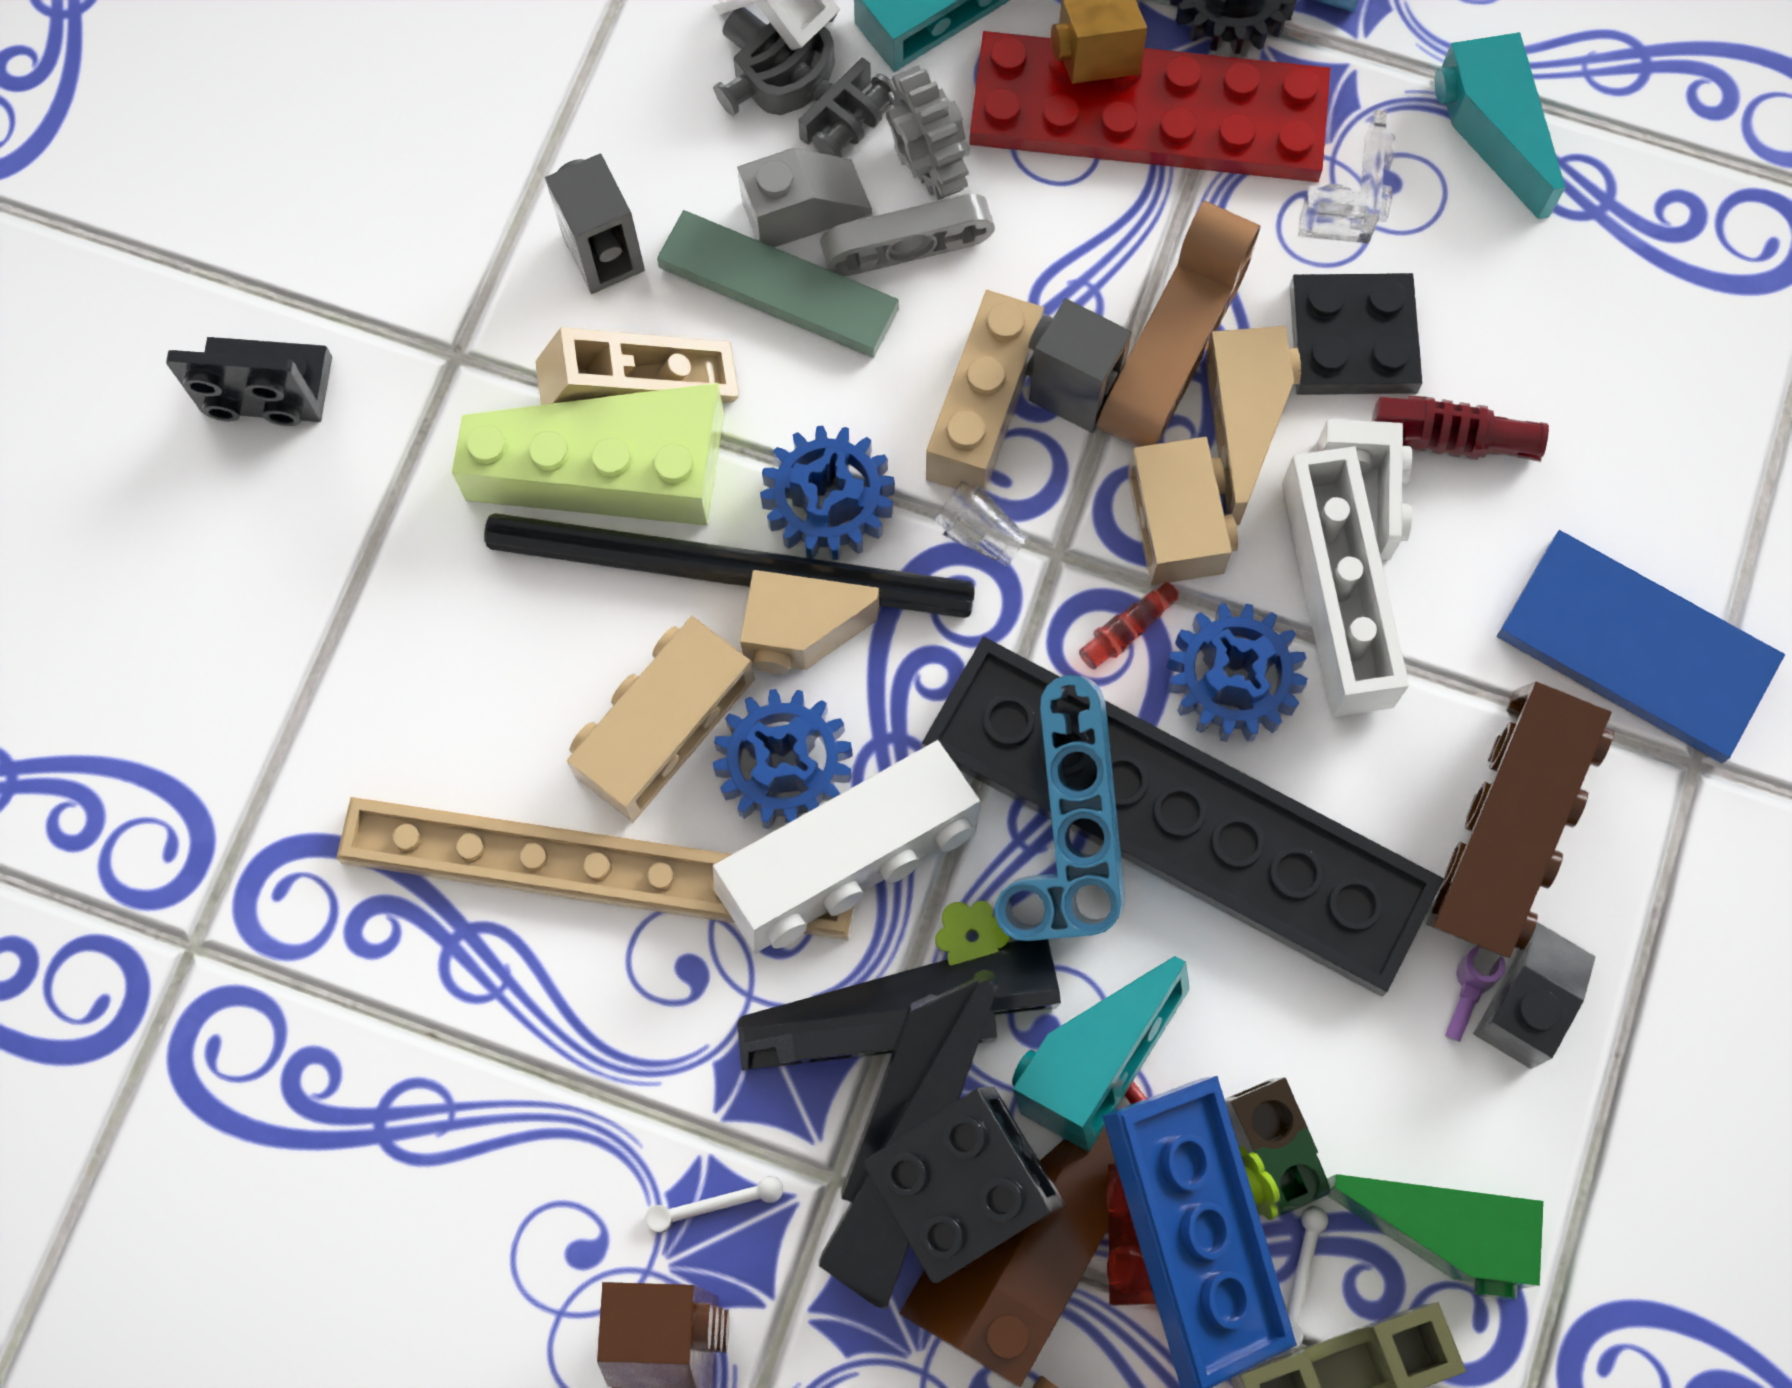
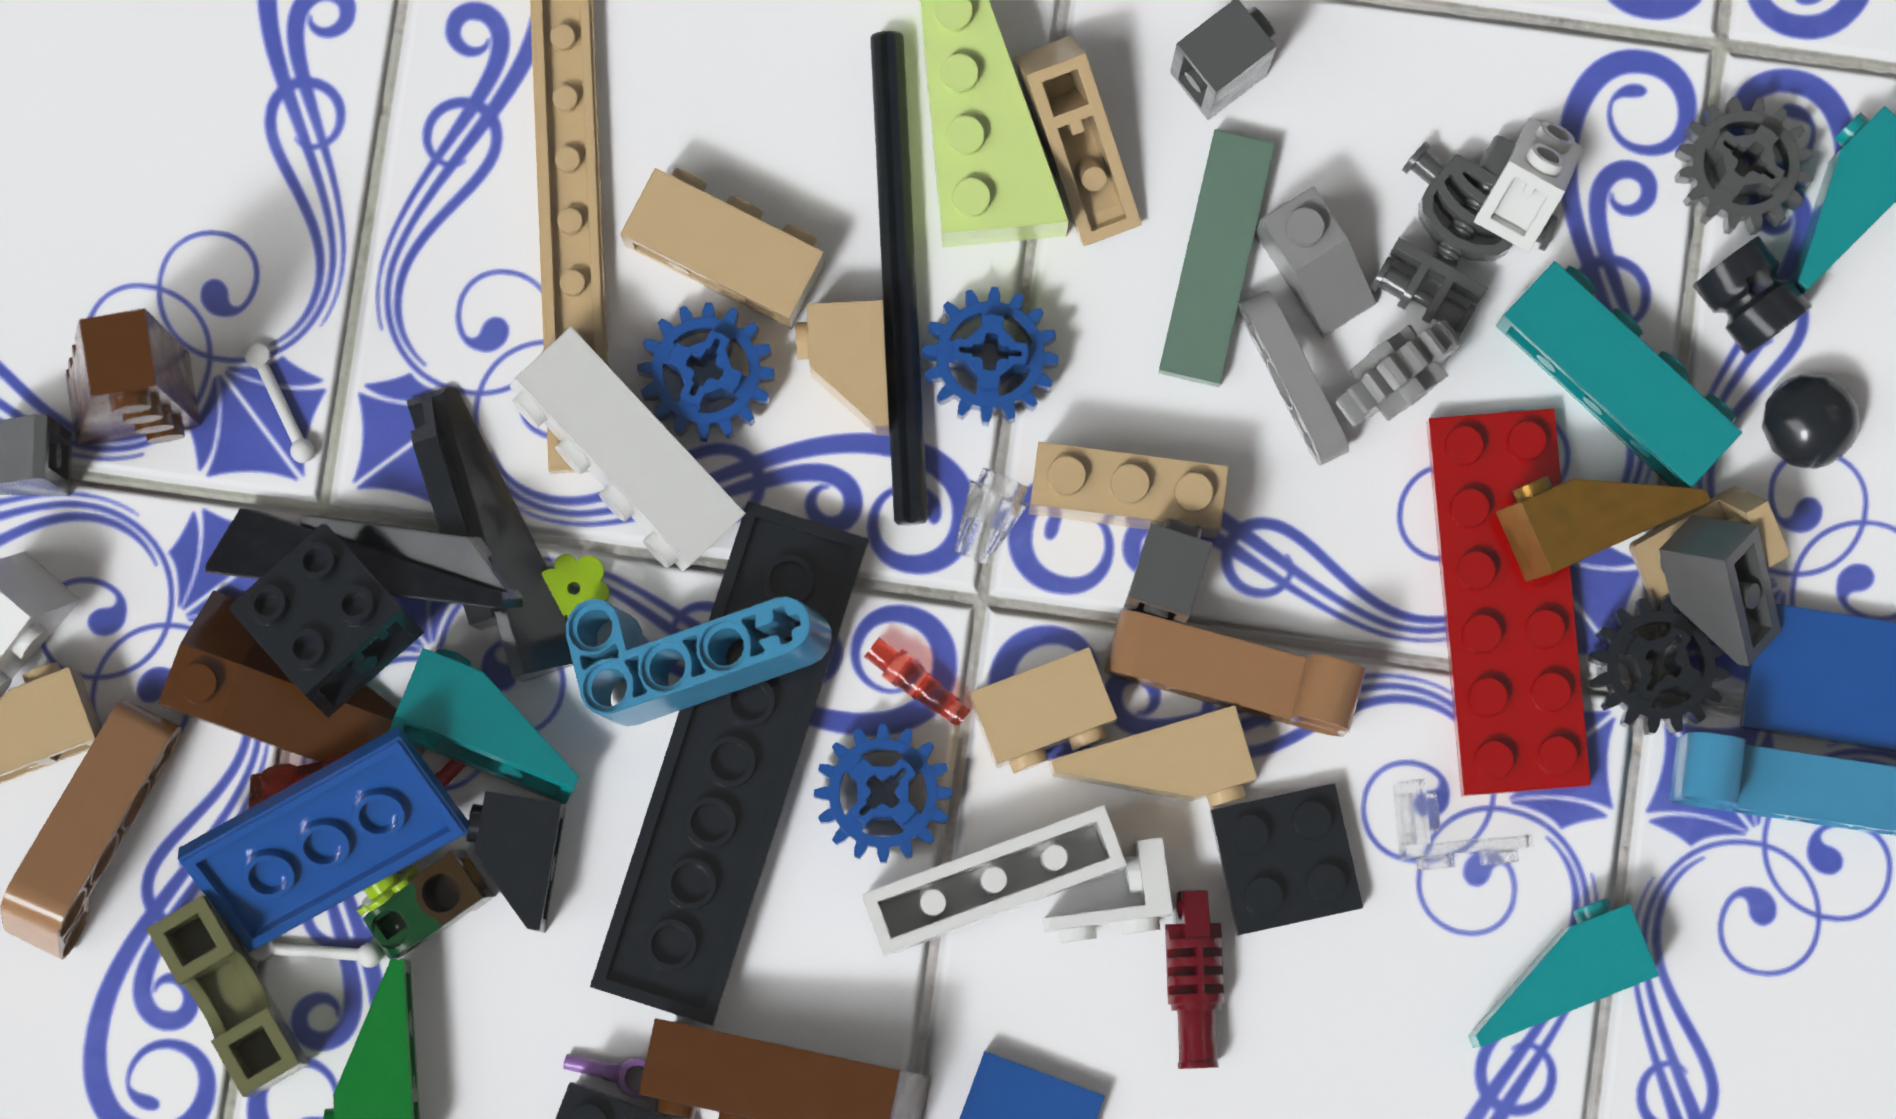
camera: 75 degrees right, 10 degrees up
(1236, 1035) = (519, 850): none -> black slope

